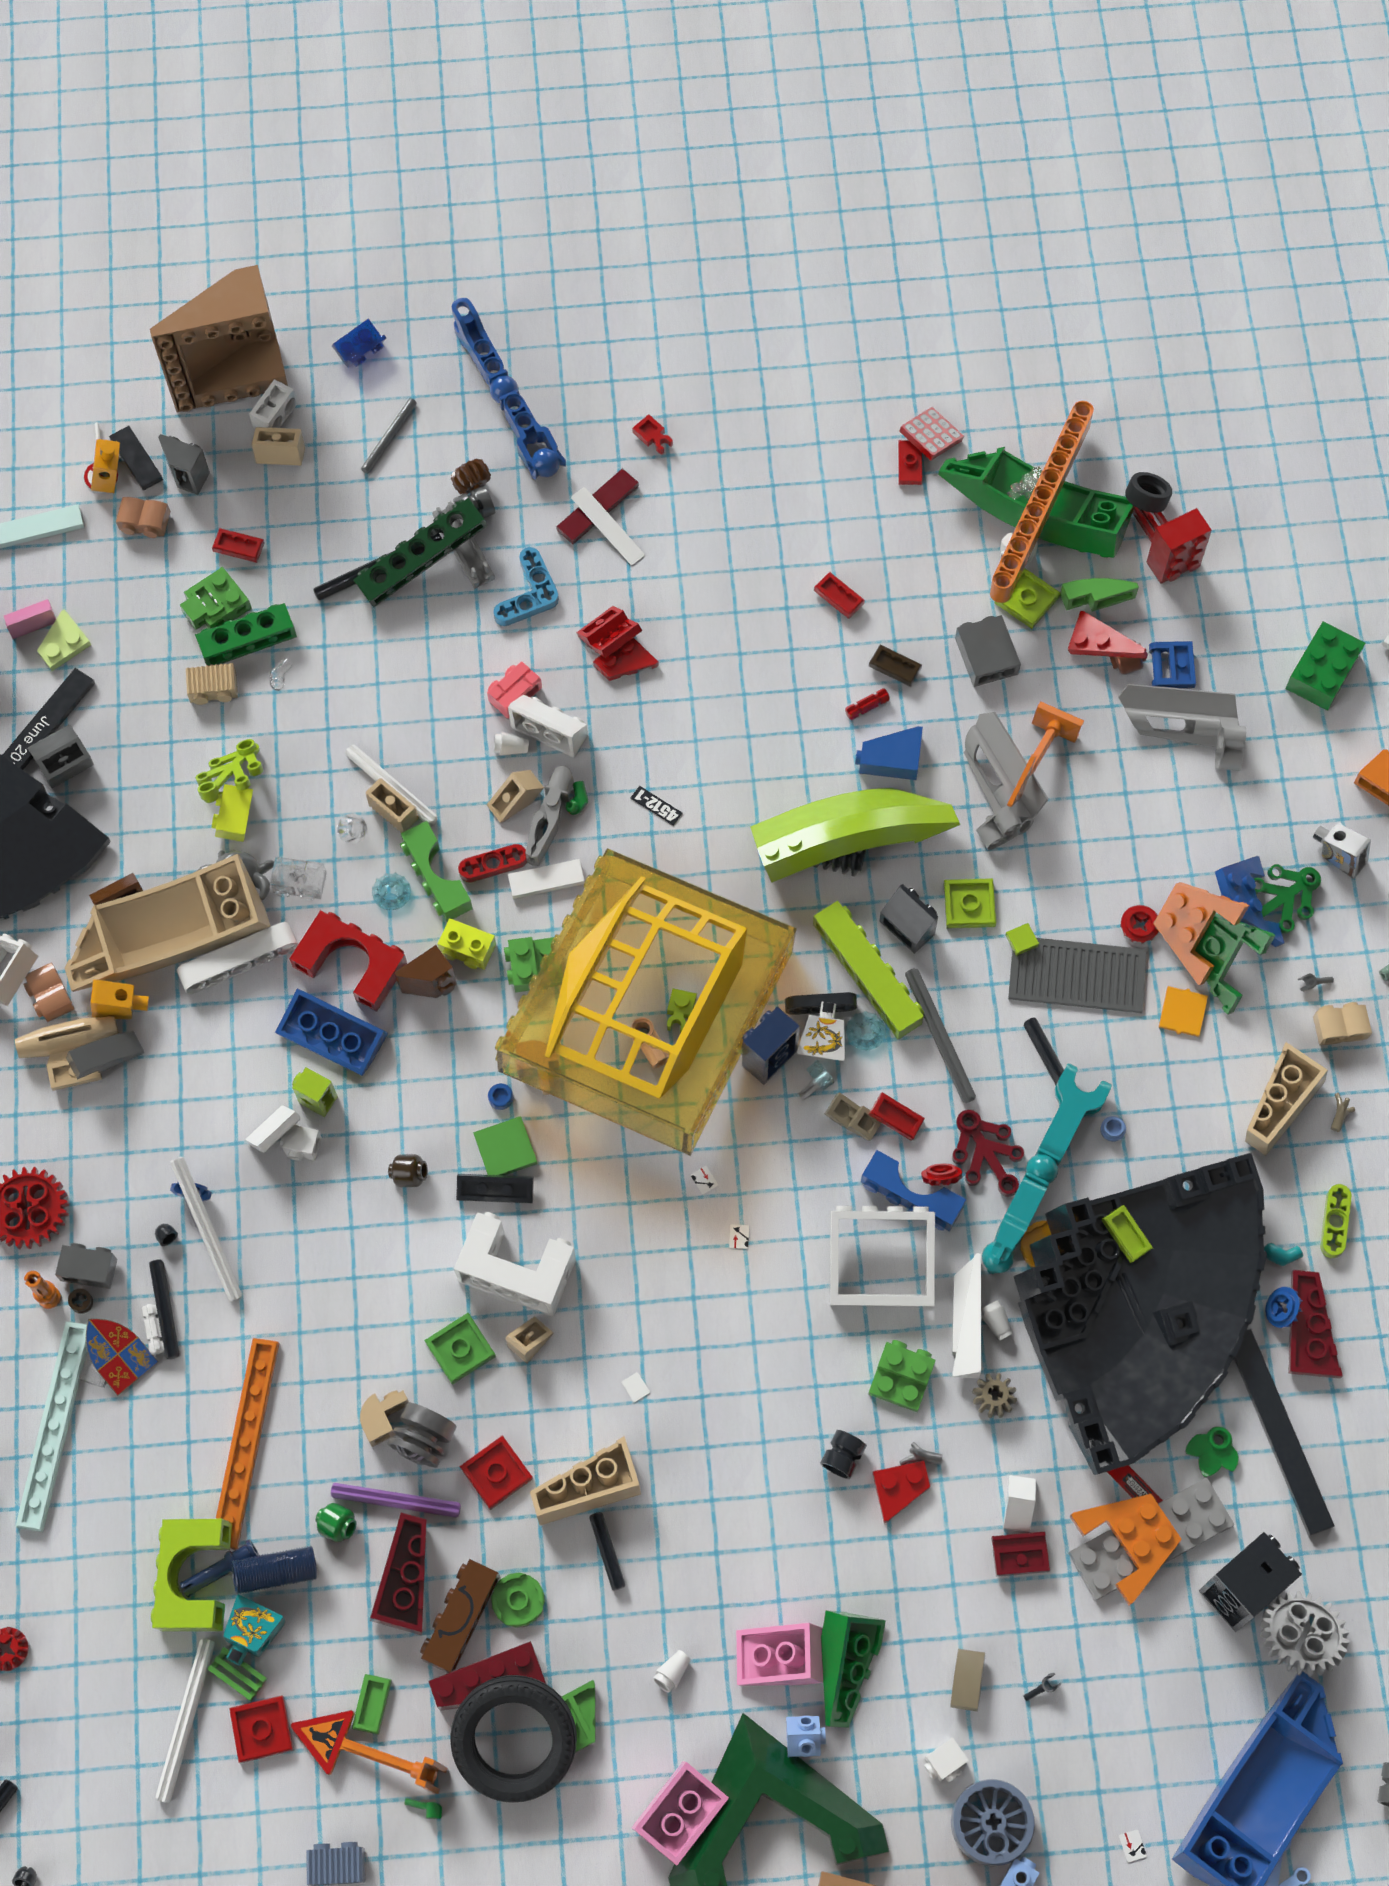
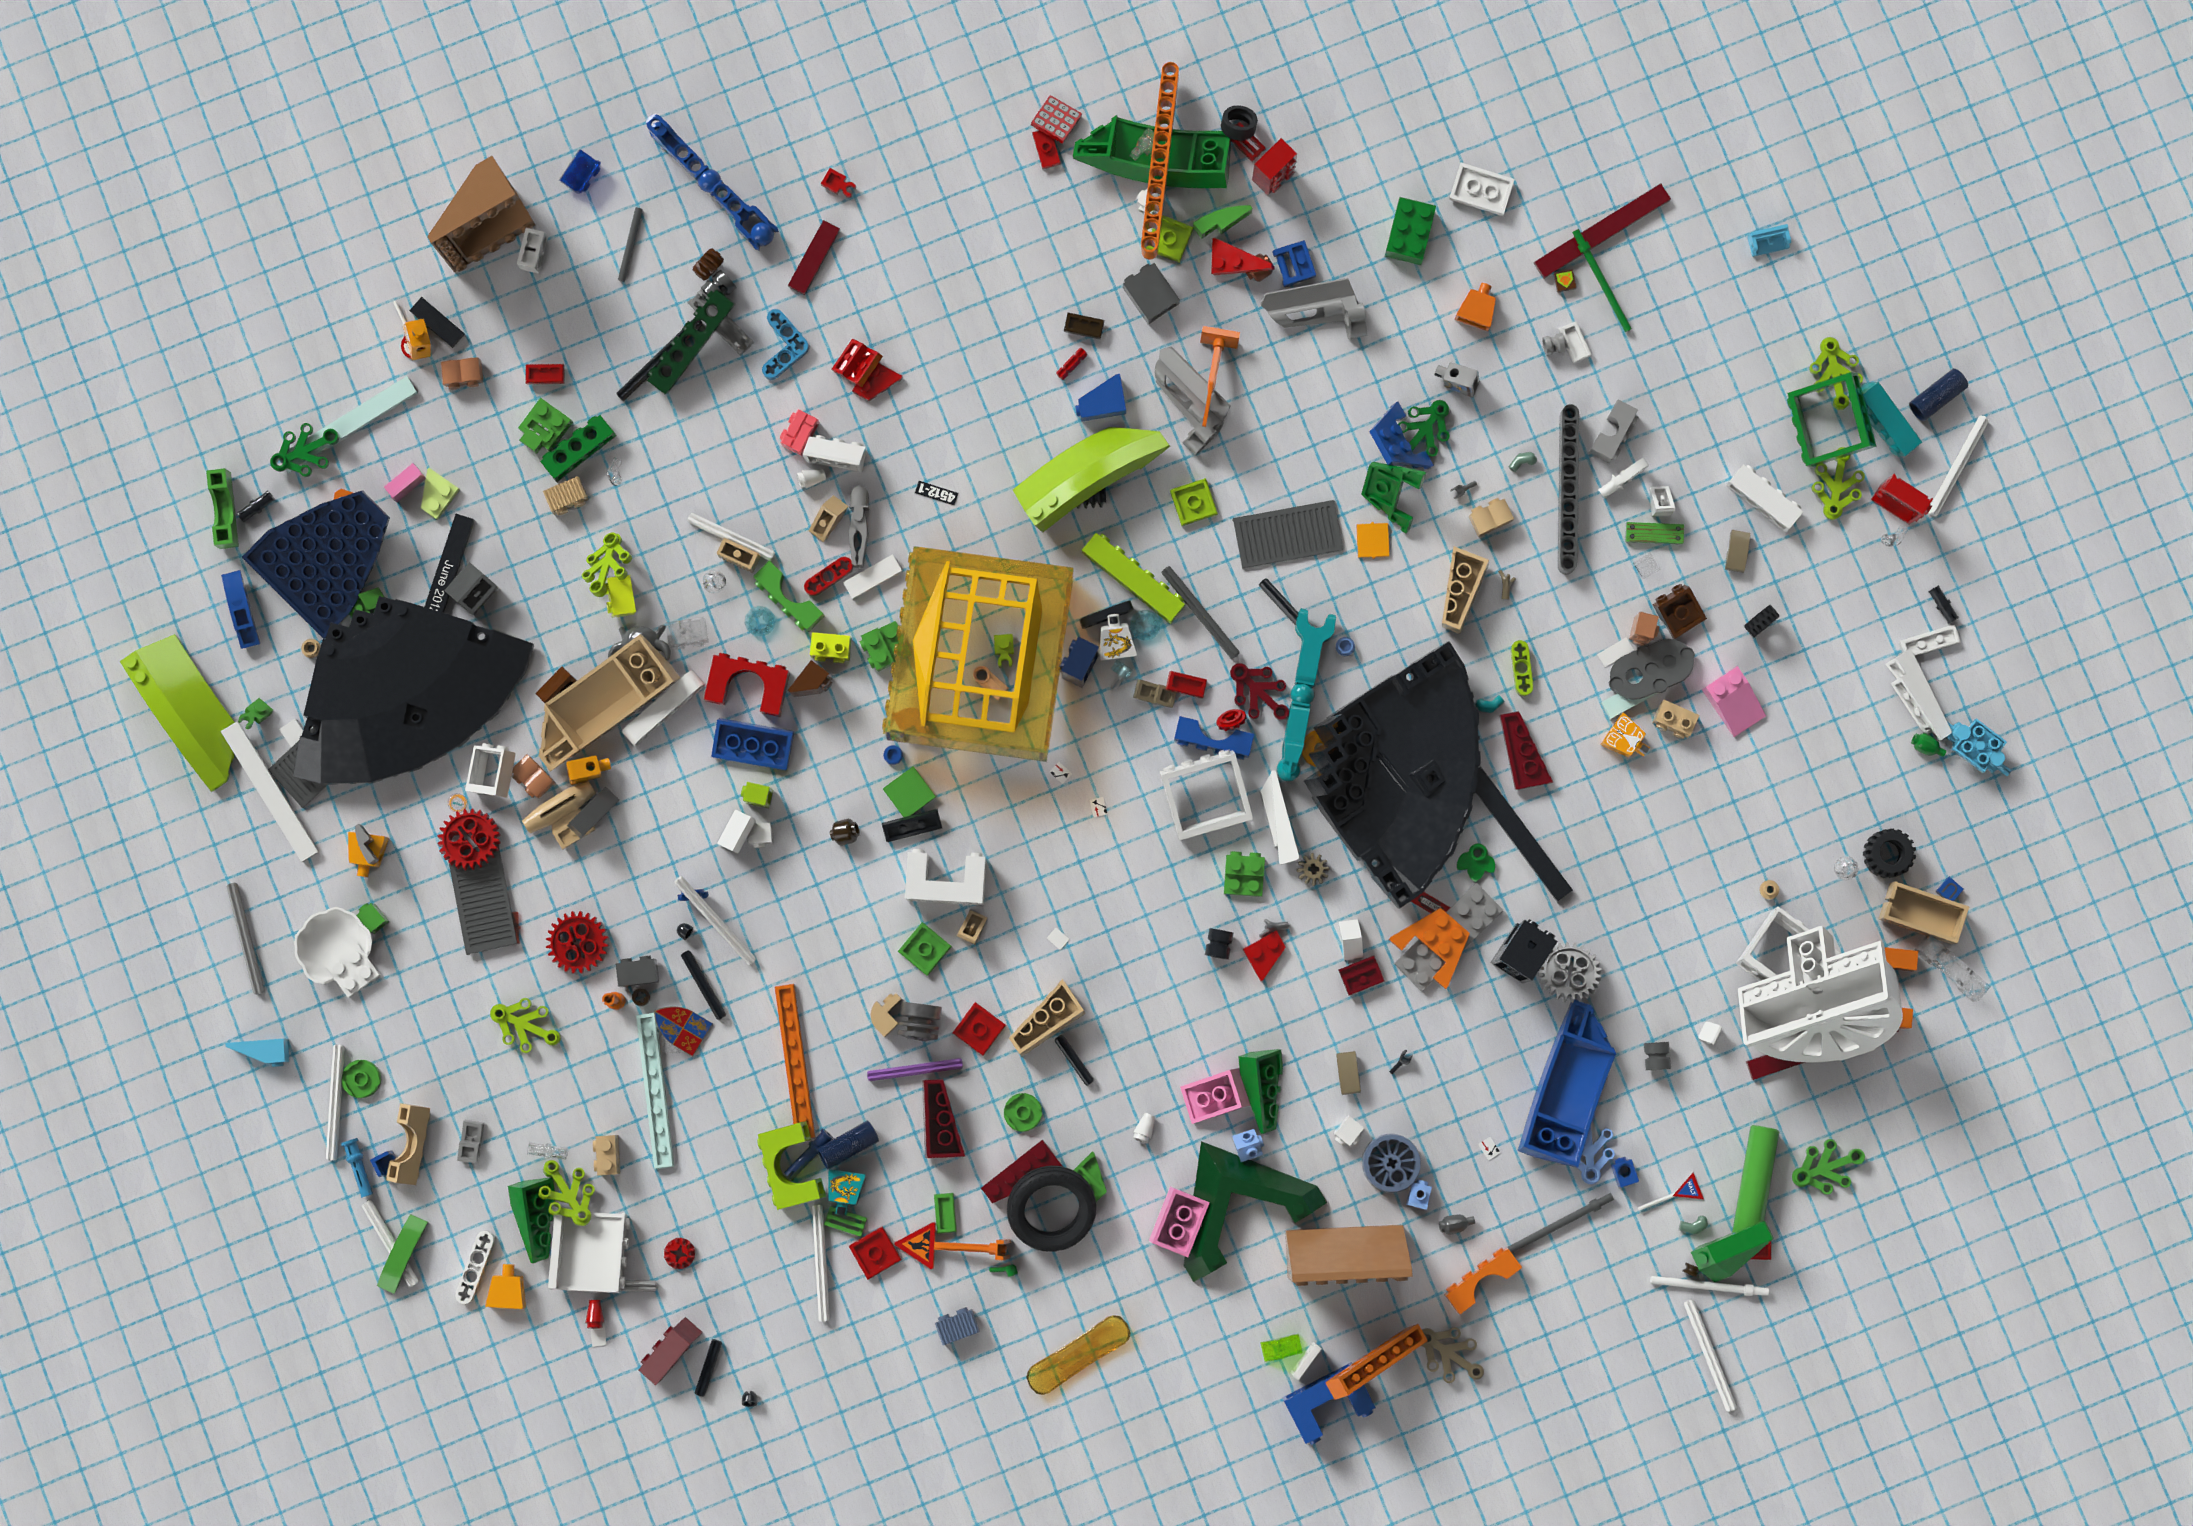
camera: 15 degrees left, 15 degrees up
(152, 1329) = (700, 1002): white axle -> none
(185, 463) = (481, 319): dark grey slope -> none
(278, 446) = (548, 282): tan brick -> none
(335, 1522) = (878, 1098): green head -> none
(460, 1616) = (987, 1136): reddish brown brick -> none
(580, 800) = (878, 506): green arm -> none
(607, 526) = (827, 272): white sticker -> none
(839, 595) = (1024, 279): red plate -> none
(909, 918) = (1152, 530): slope -> none
(996, 1319) = (1299, 814): white cone -> none
(1022, 939) = (1240, 520): lime tile -> none
(1127, 1233) = (1375, 724): lime tile -> none
(1140, 913) = (1324, 472): red gear -> none
(1186, 919) = (1357, 472): orange wing -> none
(1274, 1308) = (1494, 747): blue gear -> none

